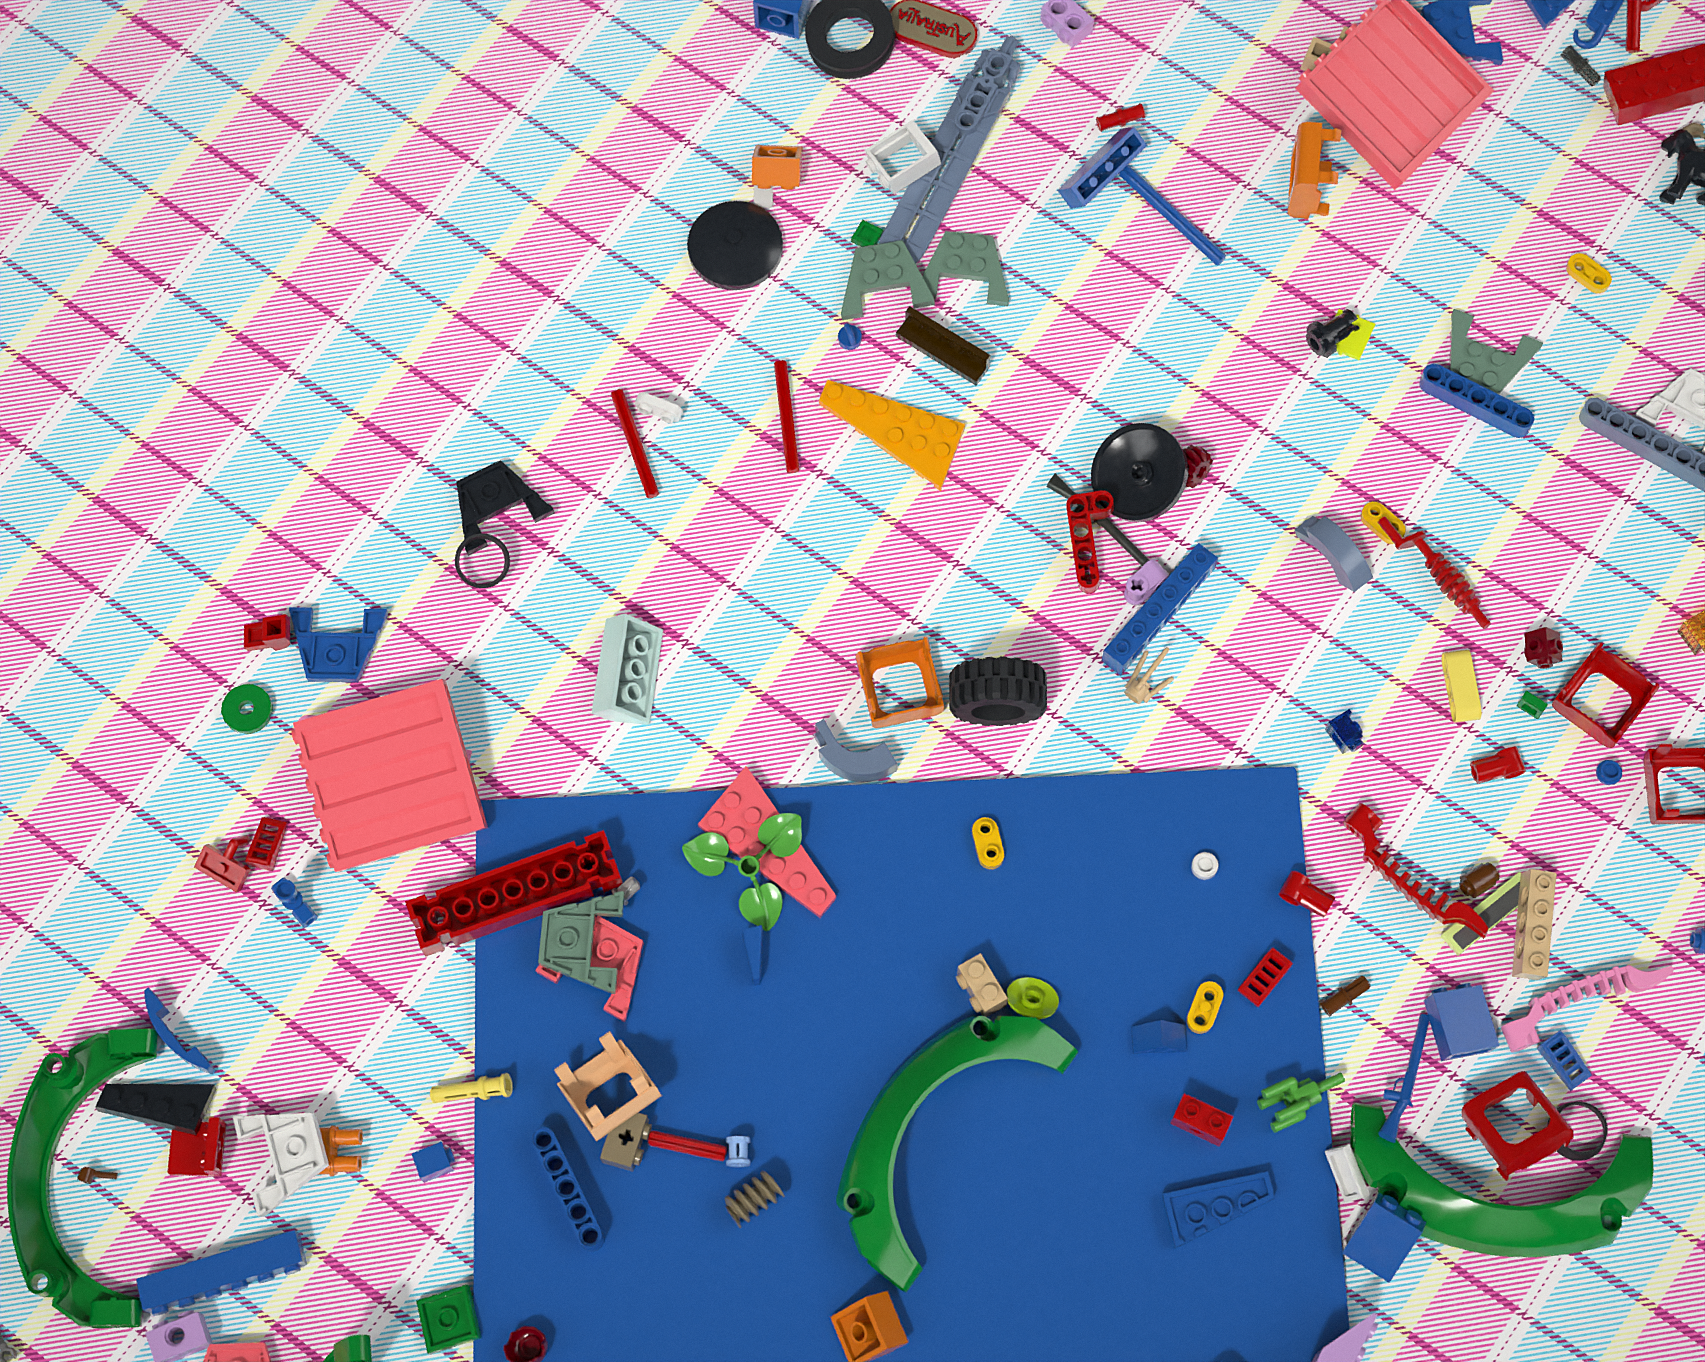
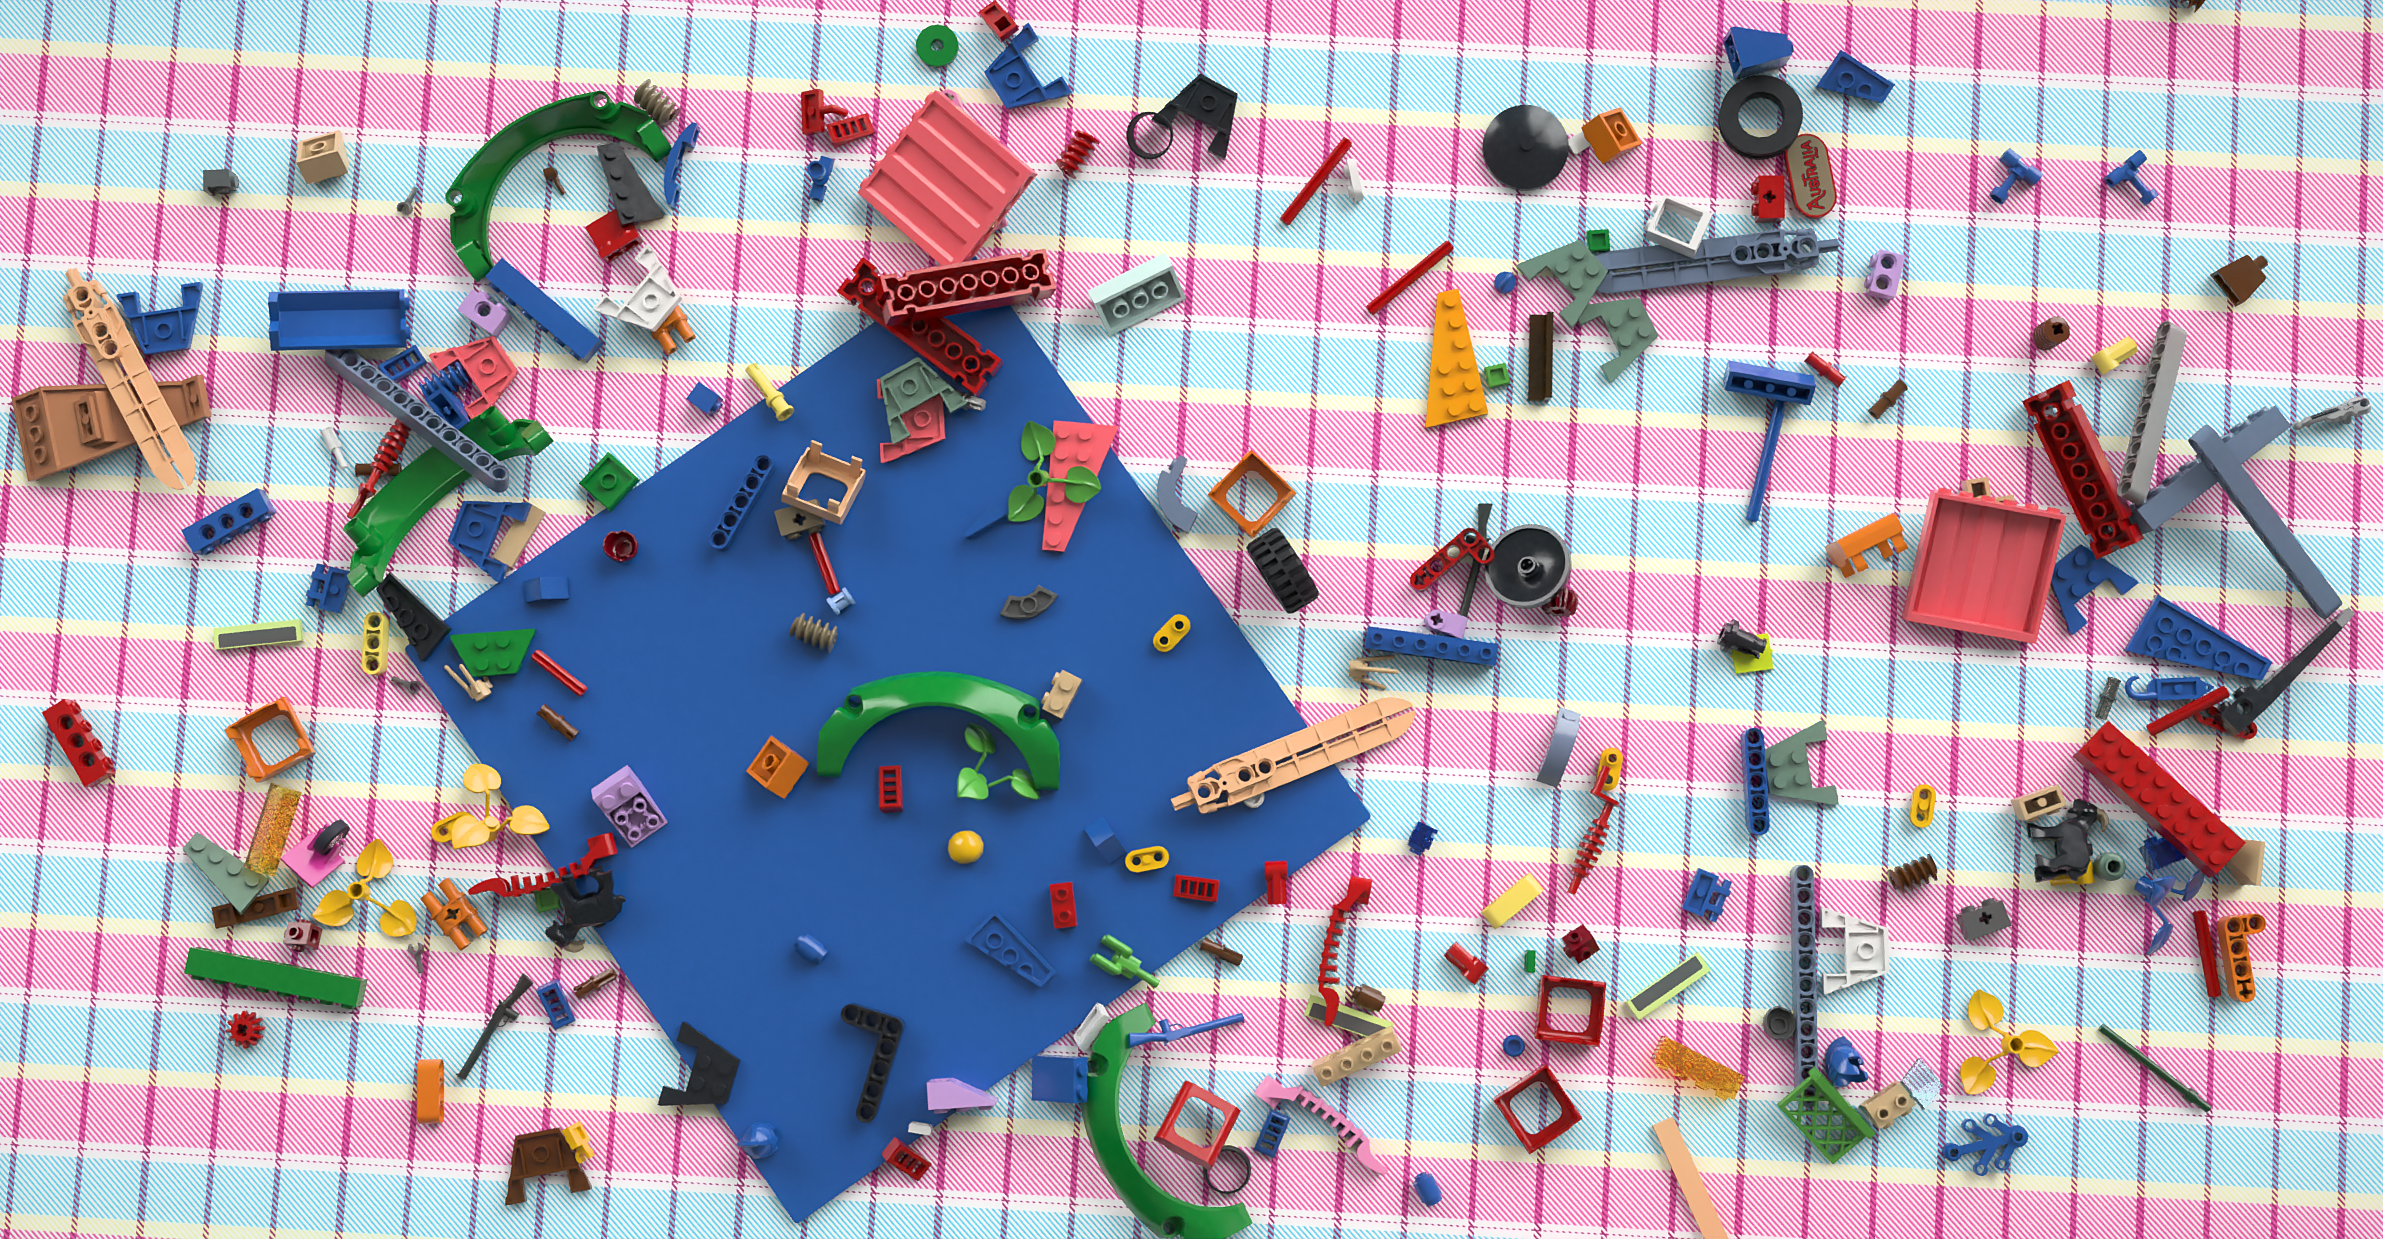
camera: 60 degrees right, 15 degrees up
(97, 1018) = (655, 104): none -> dark tan piece
(449, 642) = (1075, 153): none -> red piece
(506, 819) = (965, 287): none -> red brick
(868, 964) = (1030, 605): none -> dark grey tile
(930, 71) = (1774, 188): none -> red brick
(934, 396) = (1497, 375): none -> bright green tile
(988, 1235) = (893, 807): none -> red slope
(1019, 1127) = (974, 785): none -> bright green plant
(1032, 998) = (1083, 733): lime dish -> none
(1077, 1186) = (965, 847): none -> yellow hair
(1174, 875) = (1291, 745): none -> light nougat piece
(1183, 83) = (1888, 399): none -> reddish brown pin
(1461, 1022) = (1252, 1044): brick -> none
(1556, 511) = (1701, 891): none -> blue plate
(1631, 596) = (1668, 986): none -> tile
(1646, 173) = (2038, 802): none -> tan brick
(1651, 317) = (1913, 873): none -> reddish brown piece

